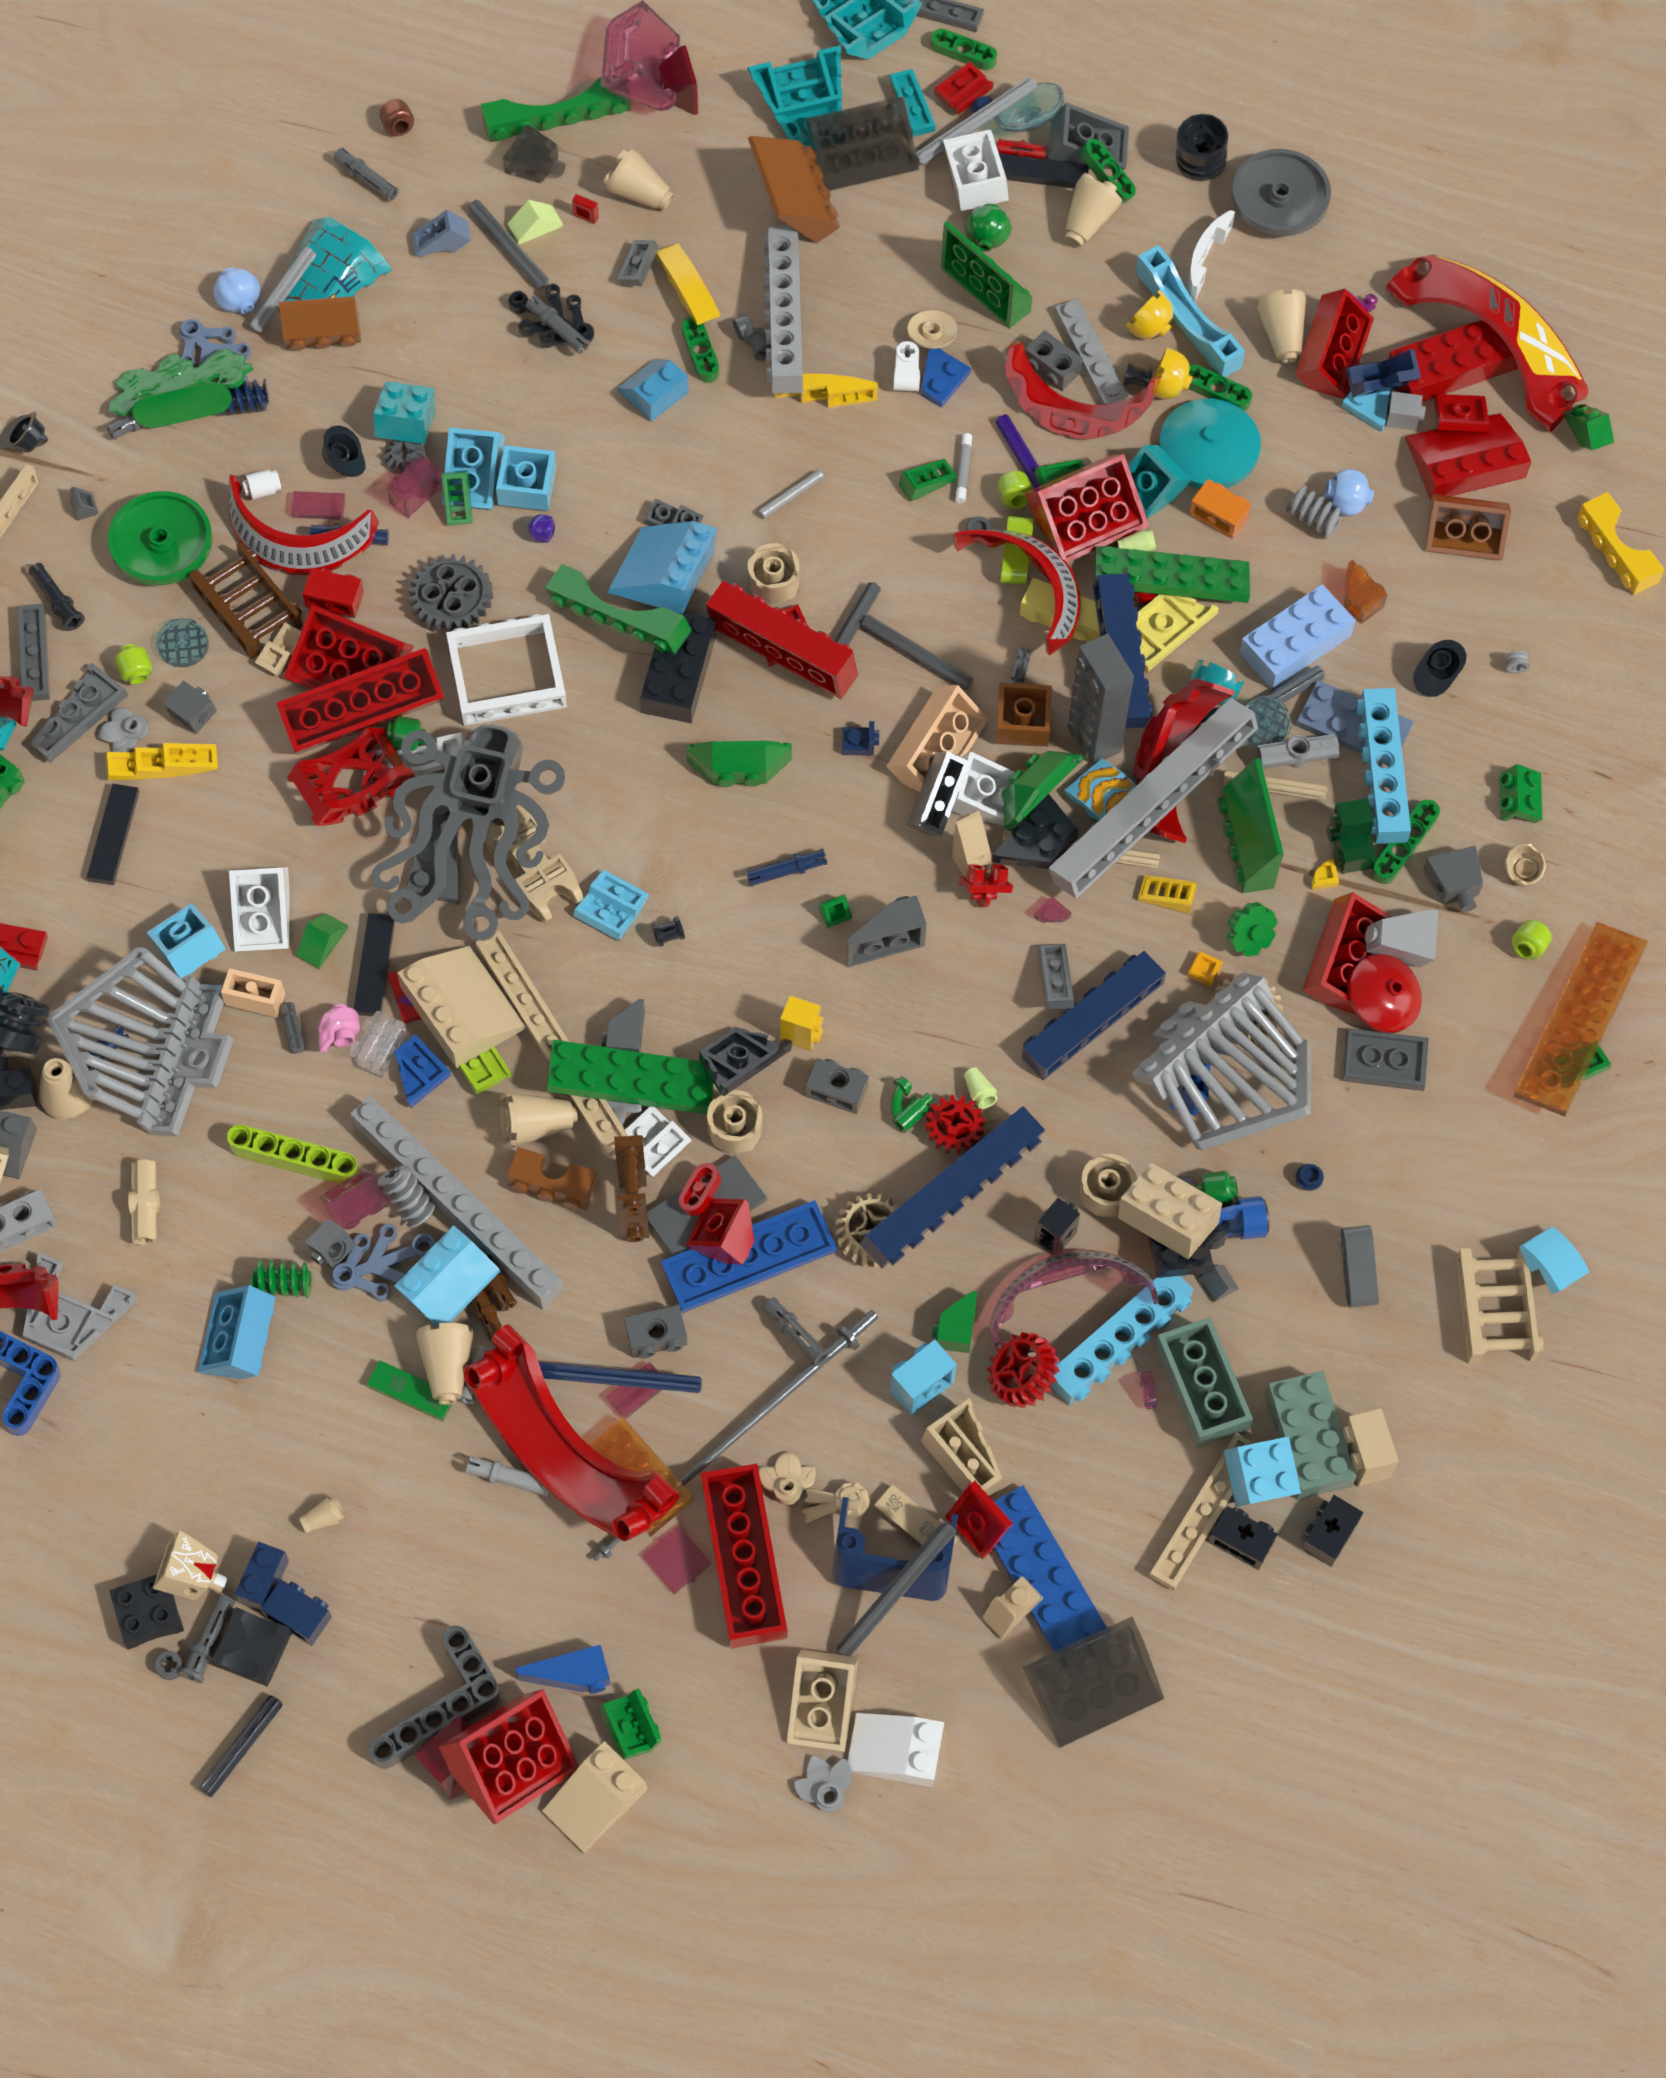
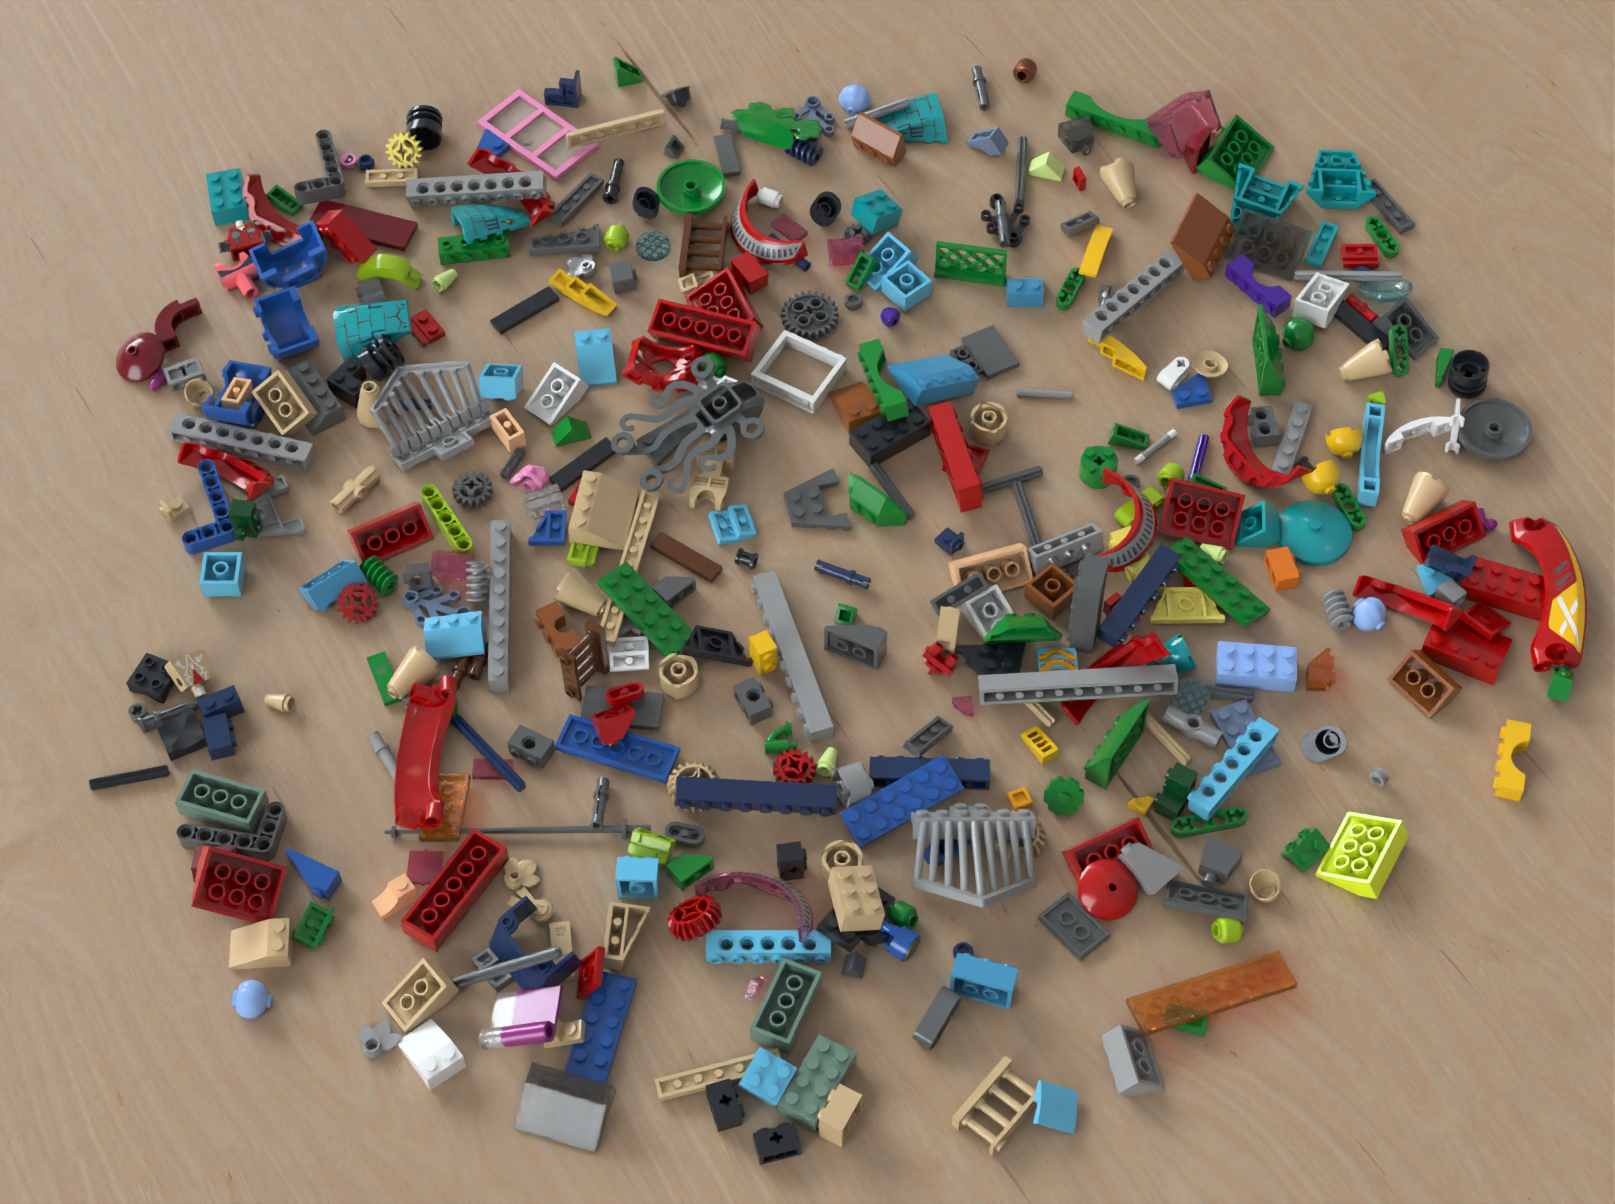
camera: 45 degrees right, 10 degrees down
(67, 1341) = (245, 519): none -> dark green brick
(99, 1426) = (222, 574): none -> medium azure brick
(126, 597) = (646, 202): none -> black piece
(154, 467) = (727, 155): none -> dark grey tile
(241, 1220) = (391, 533): none -> red slope
(259, 828) = (595, 357): none -> medium azure slope
(282, 1106) = (472, 490): none -> dark grey gear
(284, 1339) = (352, 597): none -> red gear
(385, 1681) = (222, 801): none -> sand green brick
(479, 540) = (853, 301): none -> dark grey tile
(568, 411) = (969, 270): none -> green fence
(598, 982) = (686, 557): none -> reddish brown tile
(608, 662) = (855, 405): none -> dark orange slope
(648, 1863) = (251, 999): none -> light blue plant
(670, 820) = (807, 507): none -> dark grey wing
(684, 1619) = (396, 896): none -> light nougat arch
(688, 486) = (991, 351): none -> dark grey tile
(720, 54) = (1234, 145): none -> green slope
(737, 728) = (891, 489): none -> dark grey axle
(840, 1007) = (792, 656): none -> light grey brick
(854, 1602) = (488, 958): none -> dark grey slope
(898, 1332) = (651, 844): none -> lime brick
(913, 1290) = (685, 834): none -> dark grey plate
(921, 206) = (1273, 299): none -> dark purple arch
(932, 535) = (1092, 465): none -> green brick
(960, 1628) = (523, 1018): none -> door
(992, 654) = (1066, 548): none -> light grey brick
(1035, 1089) = (852, 783): none -> light grey brick
(1101, 1069) = (893, 804): none -> blue plate
(1138, 245) = (1377, 398): none -> lime slope
(1162, 156) = (1442, 364): none -> green slope
(1242, 217) = (1455, 421): none -> white flag
(1366, 1188) = (984, 980): none -> dark azure brick
(1386, 445) = (1408, 601): none -> red windscreen
(1487, 926) = (1206, 900): none -> dark grey tile
(1573, 1152) = (1132, 1061): none -> light grey slope
(1577, 755) = (1363, 853): none -> neon yellow slope

